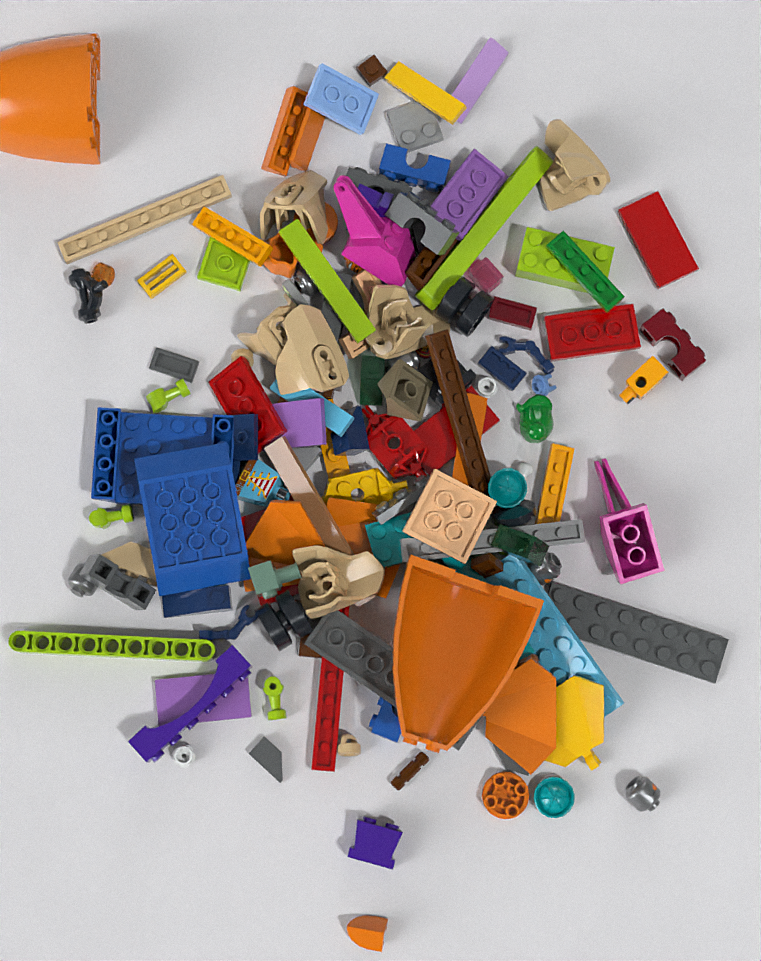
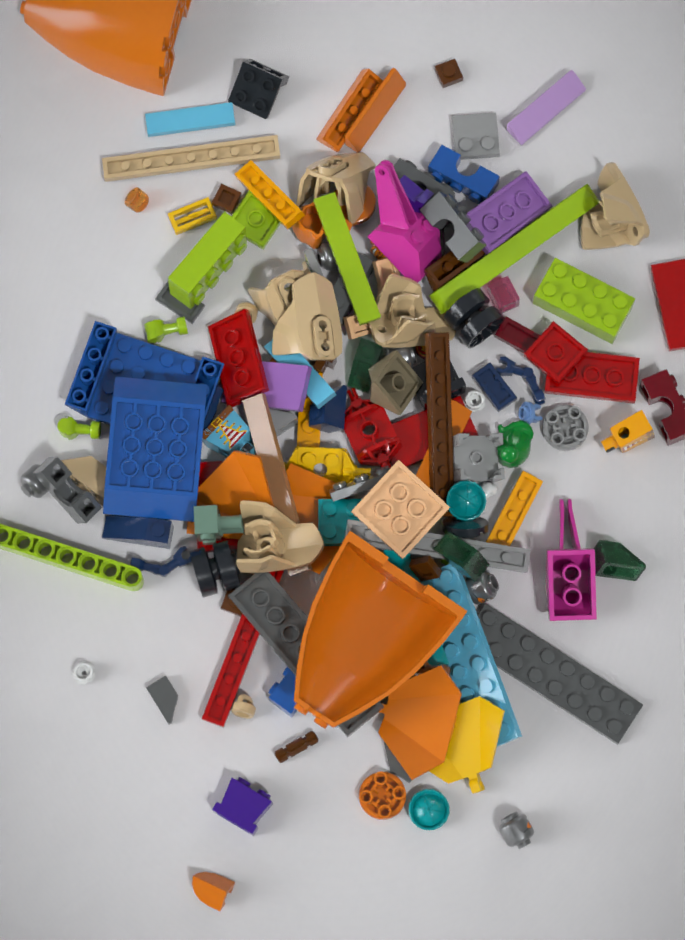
camera: 20 degrees right, 5 degrees down
(90, 301) = (119, 220): black piece -> none
(132, 181) = (190, 119): none -> medium azure tile
(152, 741) = (58, 649): dark purple arch -> none
(180, 694) = (117, 624): medium lavender tile -> none
(190, 133) = (257, 88): none -> black bracket
(191, 250) = (226, 198): none -> reddish brown plate
(191, 318) = (208, 260): none -> lime brick
(246, 437) = (228, 386): dark blue plate -> none
(273, 689) = (187, 632): lime leg -> none
(341, 99) = (410, 92): light blue plate -> none
(425, 92) = (493, 106): yellow tile -> none
(505, 443) = (477, 458): none -> light grey panel
(552, 319) = (555, 352): none -> red tile
(580, 390) = (565, 427): none -> light grey tile
(585, 271) = (599, 313): green tile -> none
(667, 507) = (616, 561): none -> clear green slope

